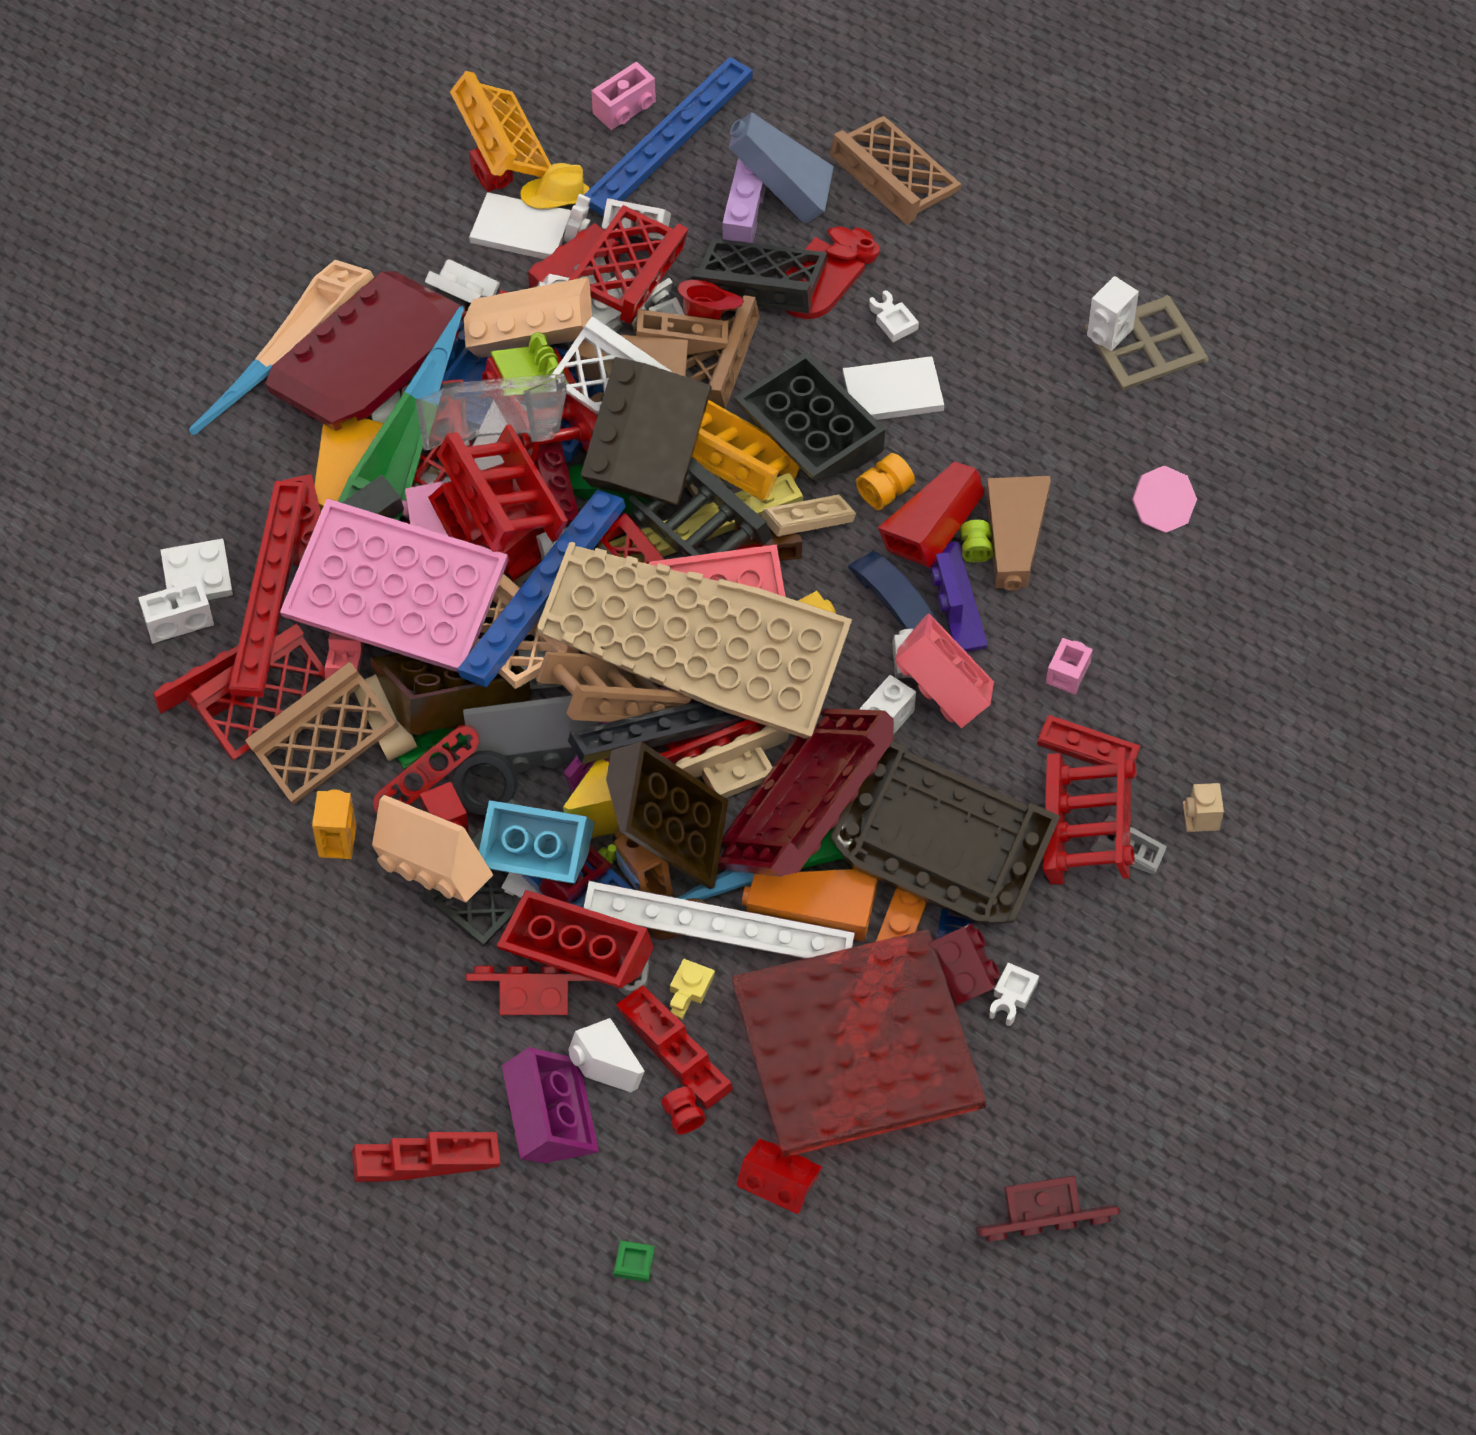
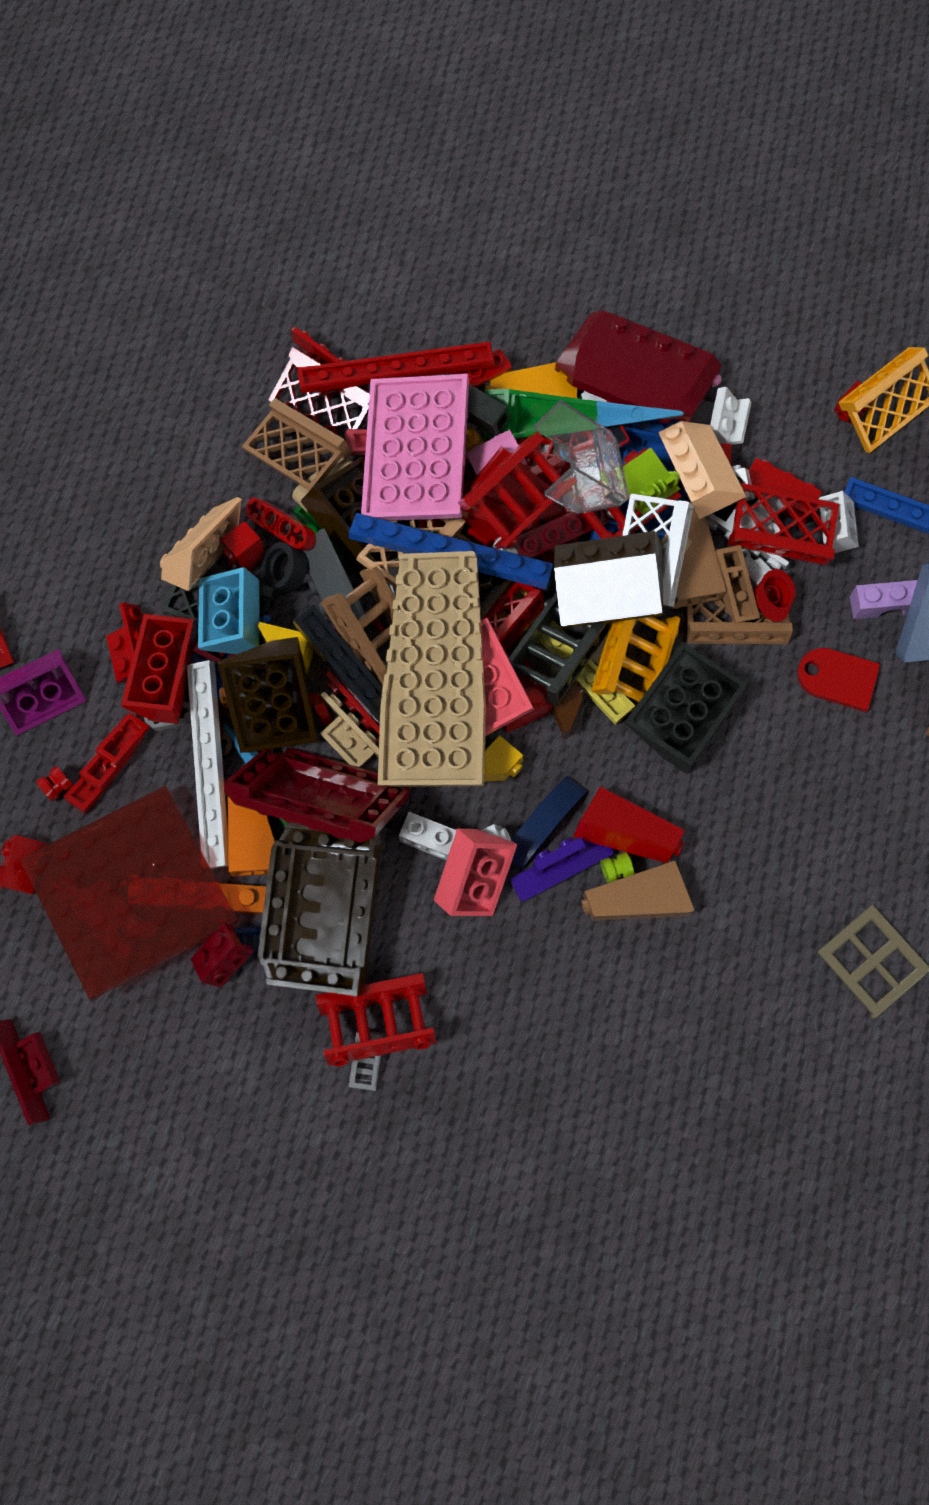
camera: 75 degrees right, 15 degrees up
(176, 611) = (371, 320): white brick -> none
(196, 562) = (417, 325): white plate -> none
(320, 300) = (686, 327): light nougat plate -> none
(334, 824) = (221, 477): light orange brick -> none
(518, 228) = (808, 443): white tile -> none
(556, 188) = (852, 456): yellow piece -> none
(578, 218) = (824, 479): white plate -> none
(605, 1056) = (83, 715): white slope -> none
(689, 985) = (163, 760): light yellow plate -> none
(770, 293) = (803, 635): pearl dark grey fence -> none
(808, 515) = (595, 730): tan tile -> none
(853, 244) = (884, 692): red plate -> none
(885, 481) = (650, 781): light orange wheel -> none
(893, 320) = (818, 748): white plate -> none
(895, 387) = (749, 765): white tile -> none
(1013, 989) = (212, 999): white plate -> none
(1069, 665) = (512, 963): bright pink brick -> none
(1083, 742) = (452, 1005): red tile -> none
(1112, 313) = (878, 922): white brick -> none
(1164, 499) = (708, 1012): bright pink piece -> none
(1204, 808) = (412, 1112): tan brick -> none

